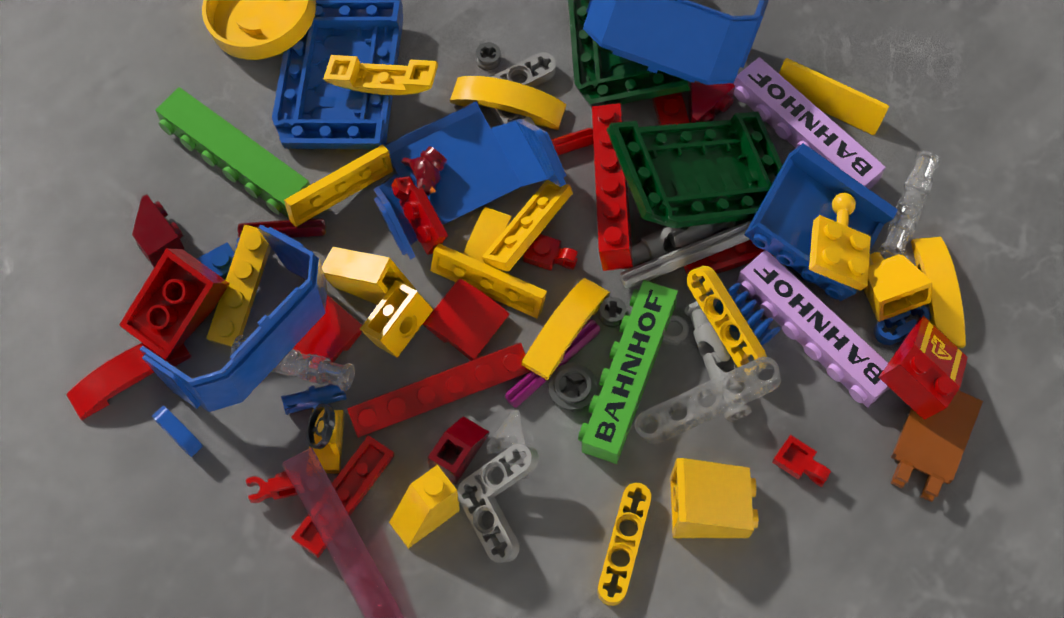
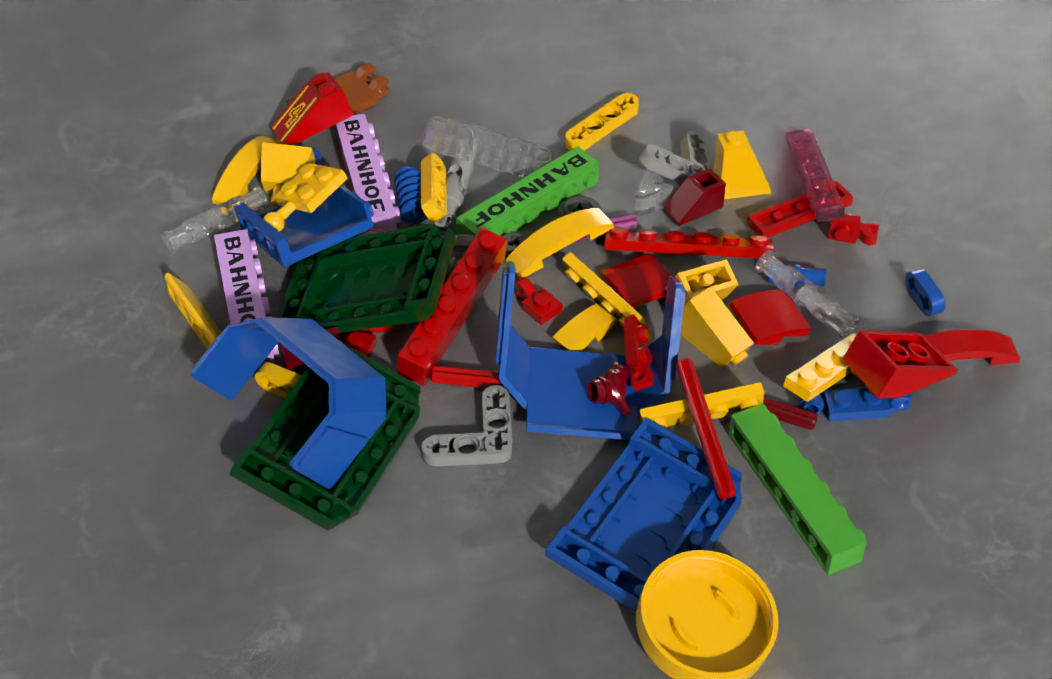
camera: 150 degrees left, 20 degrees down
(153, 231) = (899, 441): dark red slope -> none
(266, 345) = (831, 261): blue piece -> none
(324, 149) = (705, 429): none -> red axle
(326, 436) = (799, 239): piece -> none
(380, 78) = (606, 477): yellow slope -> none
(488, 49) = (476, 488): dark grey bush -> none
(509, 97) = (499, 428): yellow slope -> none
(527, 226) = (552, 309): yellow plate -> none
(712, 500) = (529, 109): yellow slope -> none
(798, 458) = (441, 109): red plate -> none

